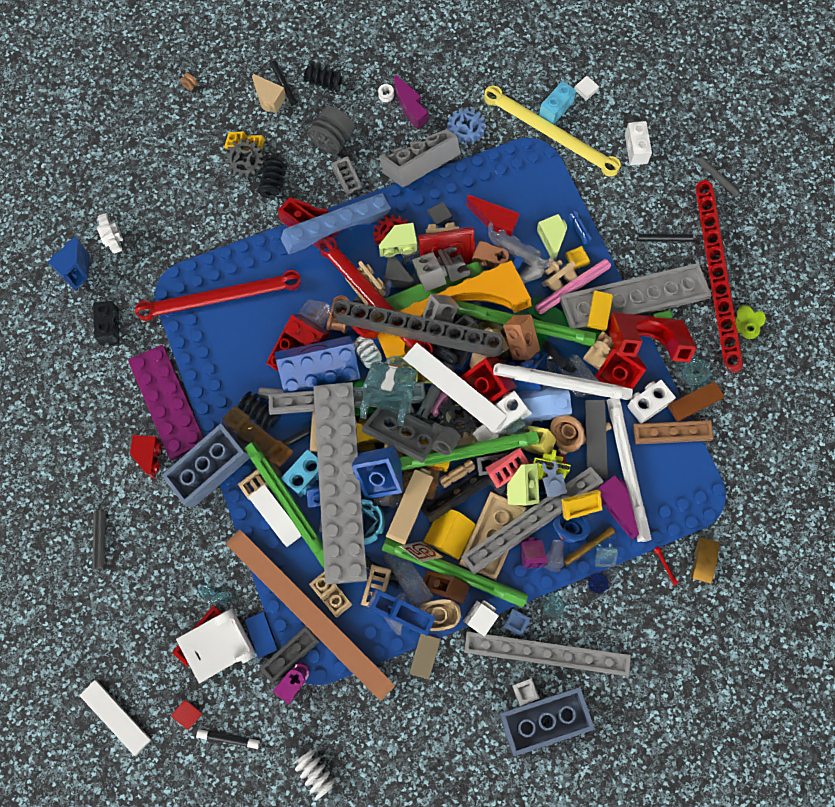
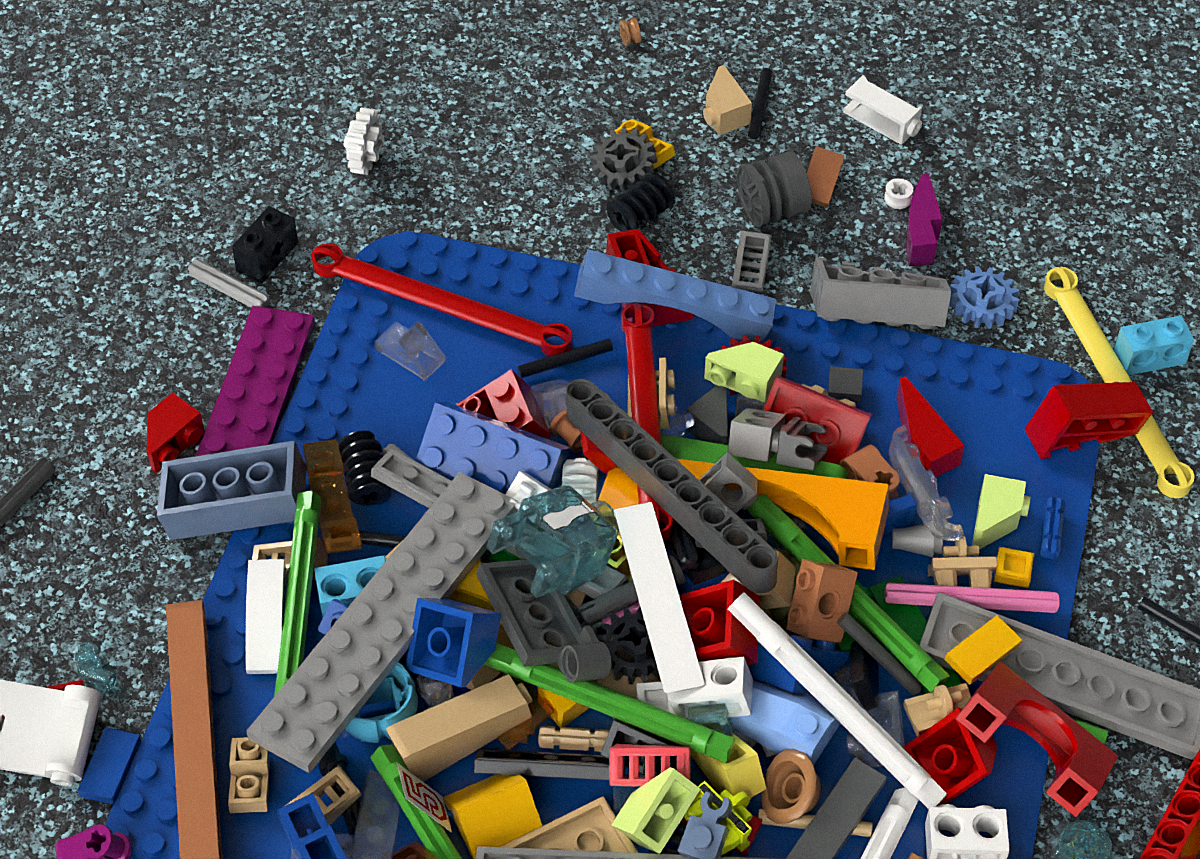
camera: 35 degrees right, 20 degrees down
(71, 263) = (285, 148): blue slope -> none
(105, 356) = (227, 284): none -> light grey axle
(226, 332) = (411, 349): none -> clear slope
(289, 655) = (122, 813): dark grey tile -> none
(302, 287) = (564, 358): none -> black bar
(323, 77) = (821, 122): black piece -> none
(343, 101) = (823, 175): none -> nougat slope
(346, 51) = (882, 111): none -> white window
(350, 374) = (524, 487): none -> white tile
(557, 160) = (1087, 413): none -> red wedge
(558, 343) = (880, 654): none -> dark grey bar

